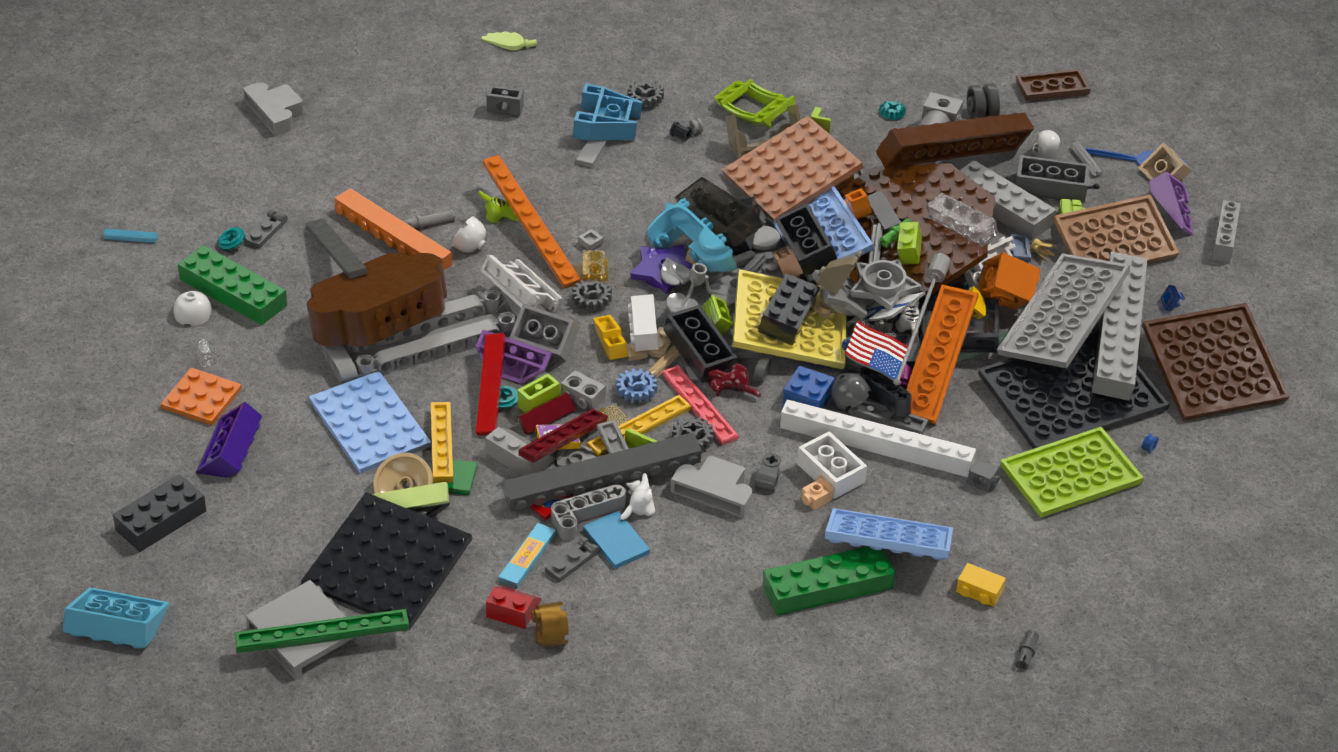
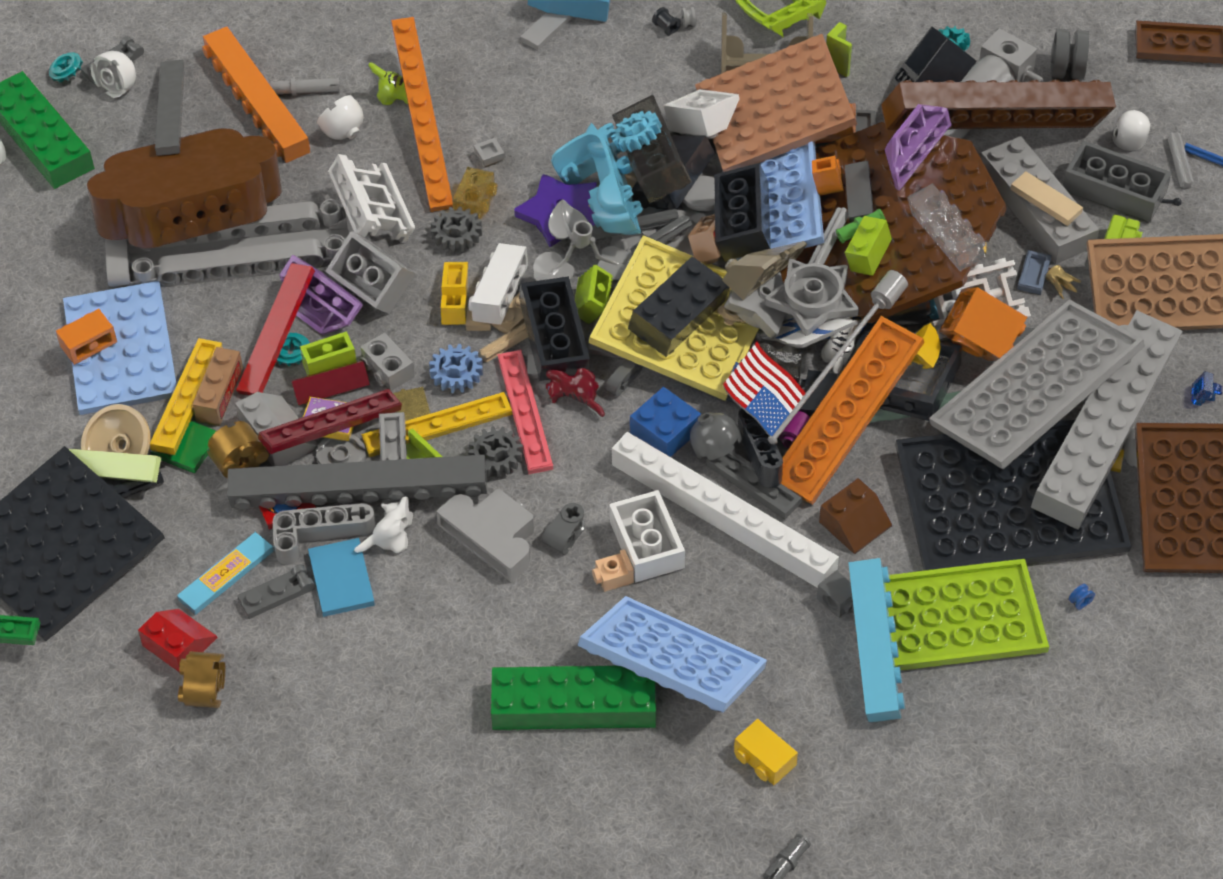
camera: 20 degrees right, 10 degrees up
(275, 235) = (113, 72): none -> white cylinder
(345, 415) = (86, 336): none -> orange brick
(462, 431) = (217, 386): none -> medium nougat brick
(500, 466) = (236, 448): none -> pearl gold brick
(707, 199) = (636, 131): none -> medium azure gear
(745, 181) = (701, 113): none -> white slope
(890, 116) = (935, 60): none -> black windscreen
(912, 170) = (915, 141): none -> medium lavender wedge
(971, 424) = (855, 516): none -> reddish brown slope
(1014, 195) = (1046, 198): none -> tan tile
(1027, 496) = (875, 640): none -> medium azure brick

